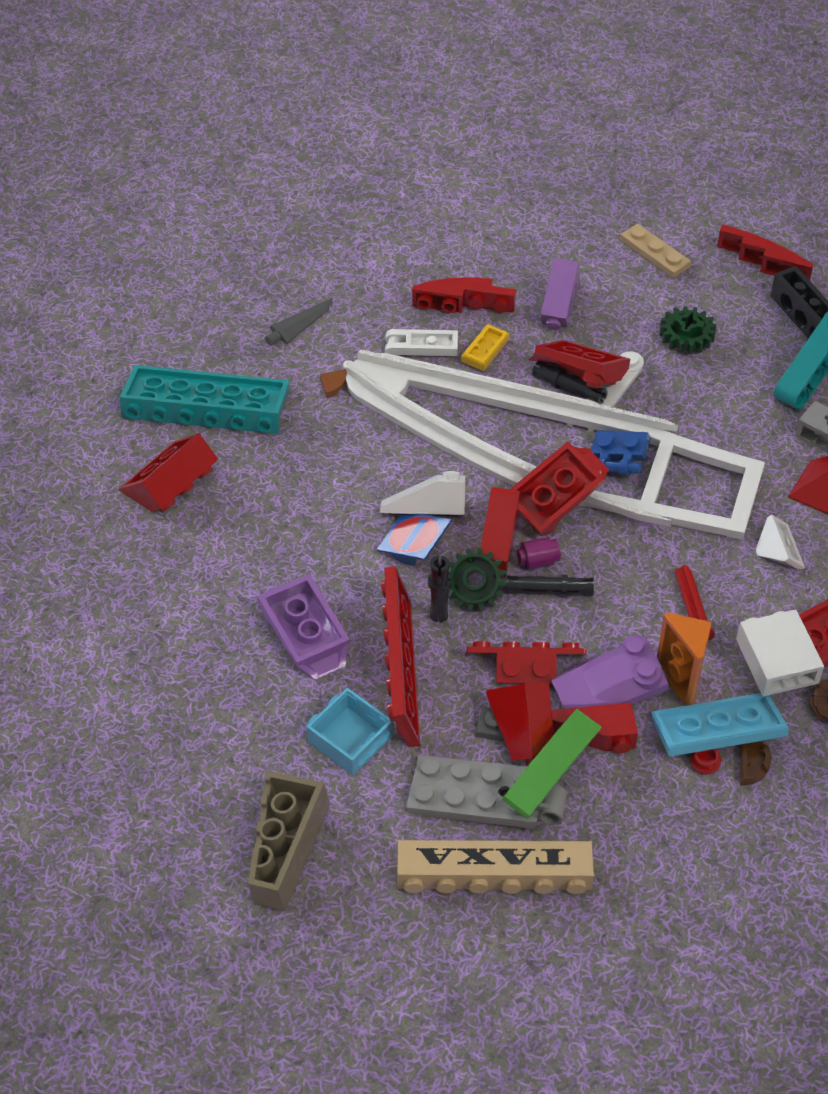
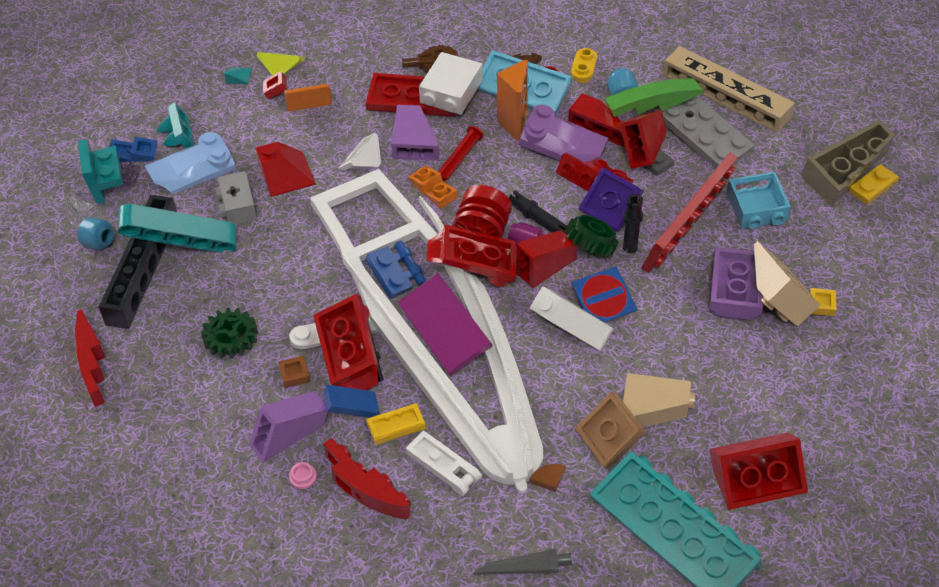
camera: 140 degrees left, 0 degrees up
(210, 658) = (826, 299): none -> yellow plate
(240, 844) = (873, 184): none -> yellow plate
(257, 632) = (782, 287): none -> tan slope
(296, 475) = (657, 398): none -> tan slope
(310, 425) = (610, 430): none -> medium nougat tile
(494, 631) = (609, 198): none -> dark purple tile
(515, 279) = (302, 475): none -> bright pink plate
(522, 429) = (445, 324): none -> magenta tile
(532, 333) = (351, 401): none -> blue tile
(590, 528) = (483, 210): none -> red wheel
(604, 335) = (294, 371): none -> dark orange plate
(612, 791) = (621, 80): none -> dark azure head
(655, 250) = (156, 429): tan plate -> none
(672, 556) = (431, 185): none -> orange slope
(683, 802) = (584, 65): none -> yellow plate
(755, 587) = (413, 135): none -> medium lavender slope

